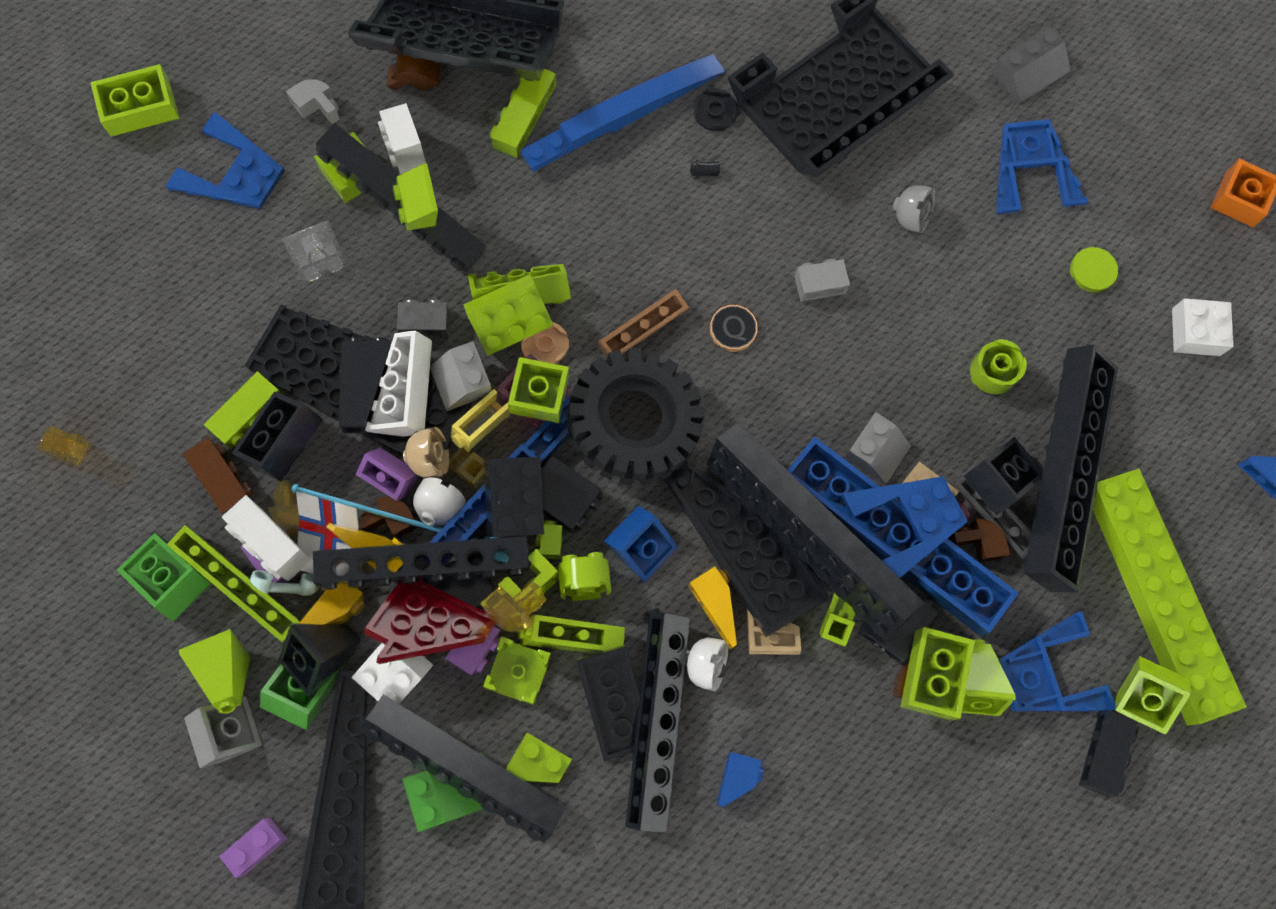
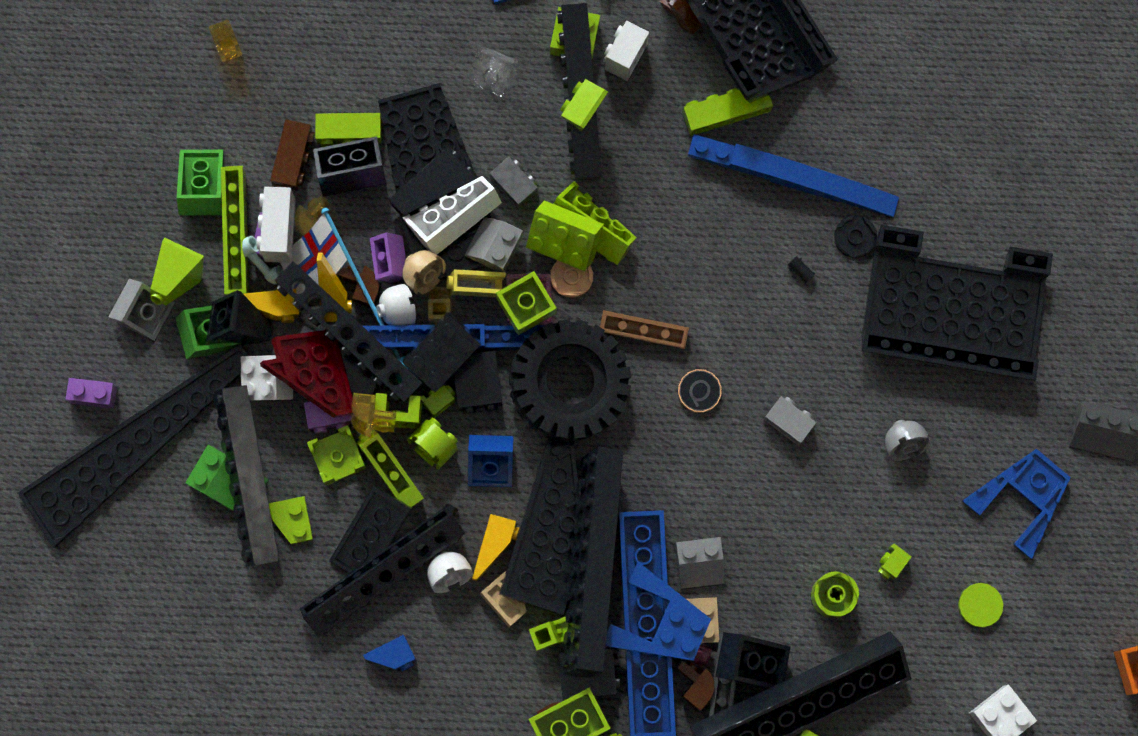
camera: 50 degrees right, 5 degrees up
(1006, 301) = (893, 562): none -> lime brick

